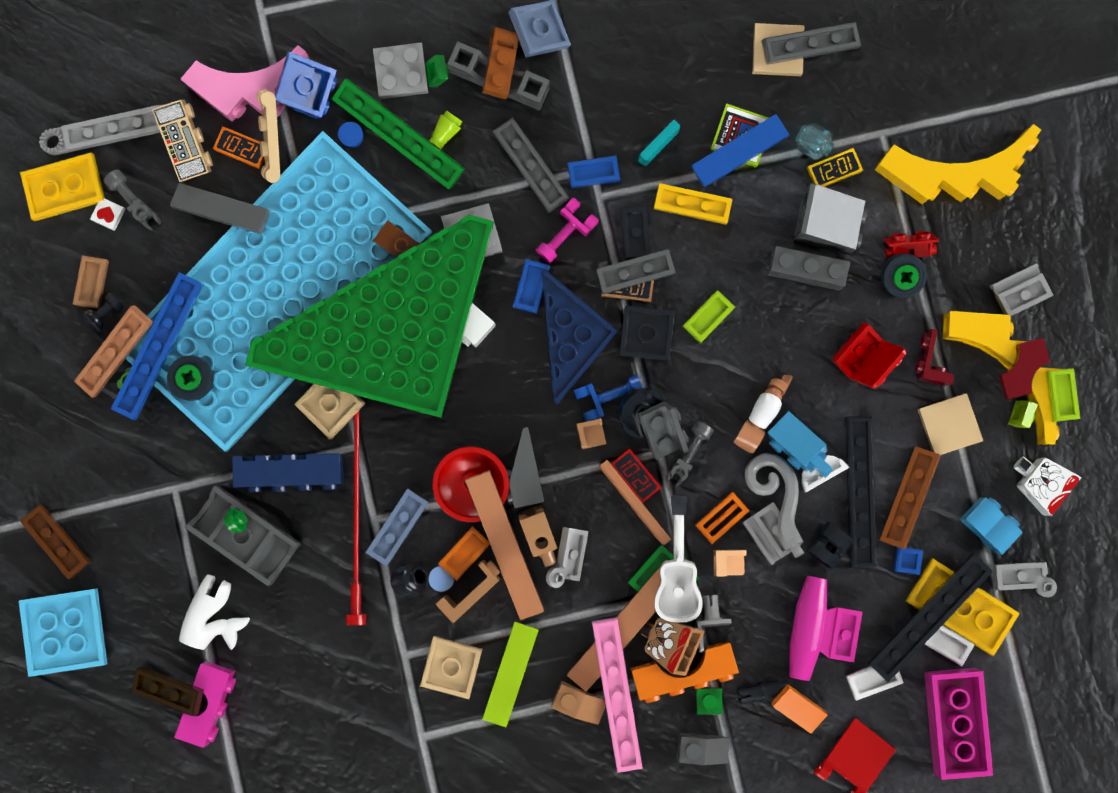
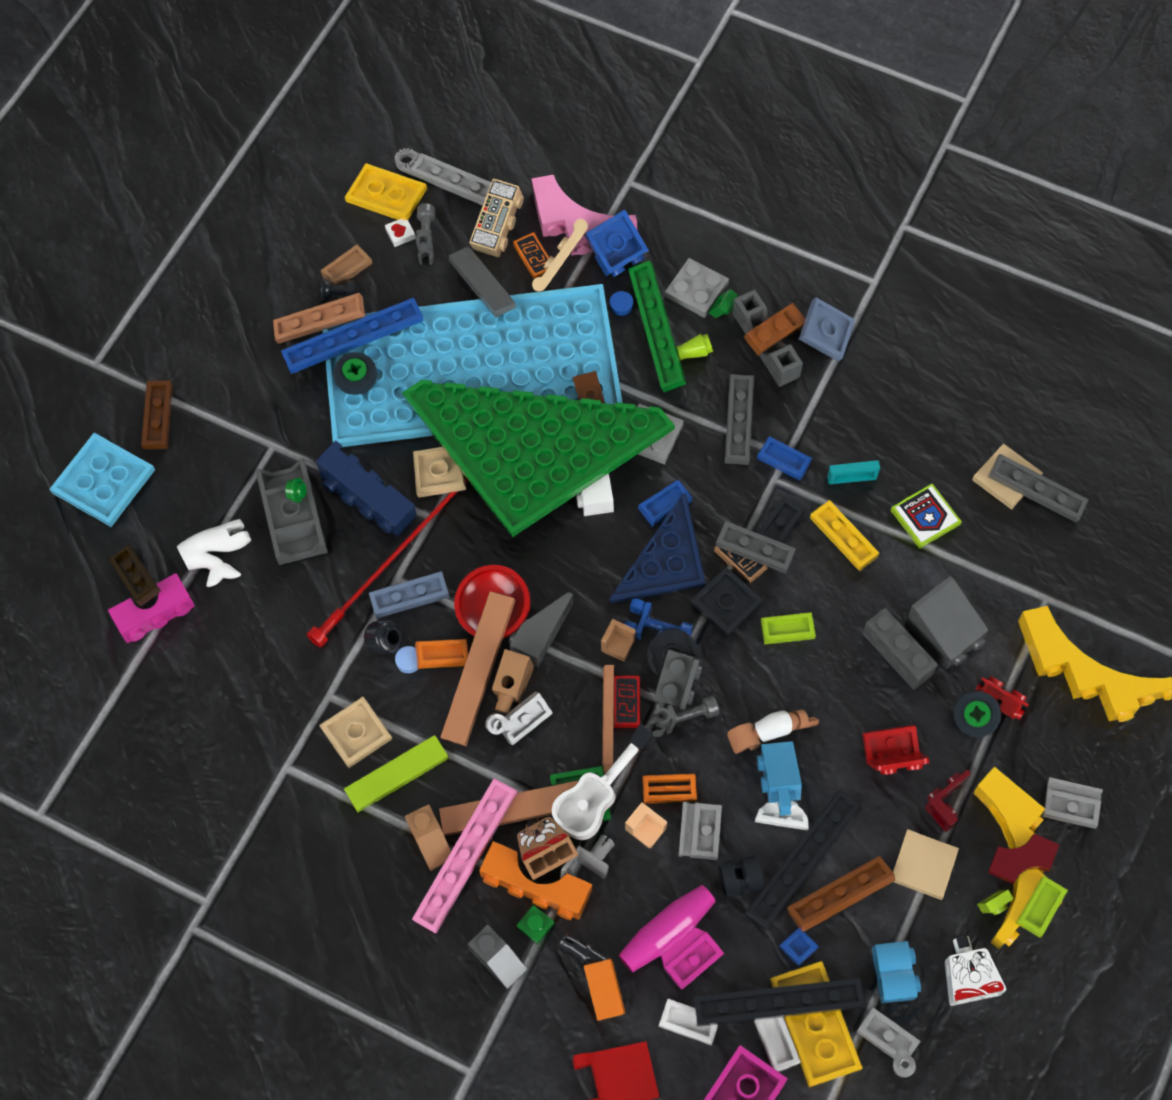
camera: 45 degrees right, 20 degrees down
(455, 611) = (422, 683): medium nougat panel -> none
(547, 251) = (740, 470): dark pink bar -> none
(740, 150) = (914, 522): blue tile -> none
(787, 529) = (714, 831): light grey plant -> none
(814, 141) = (982, 559): clear light blue head -> none
(835, 168) = (986, 595): tile -> none

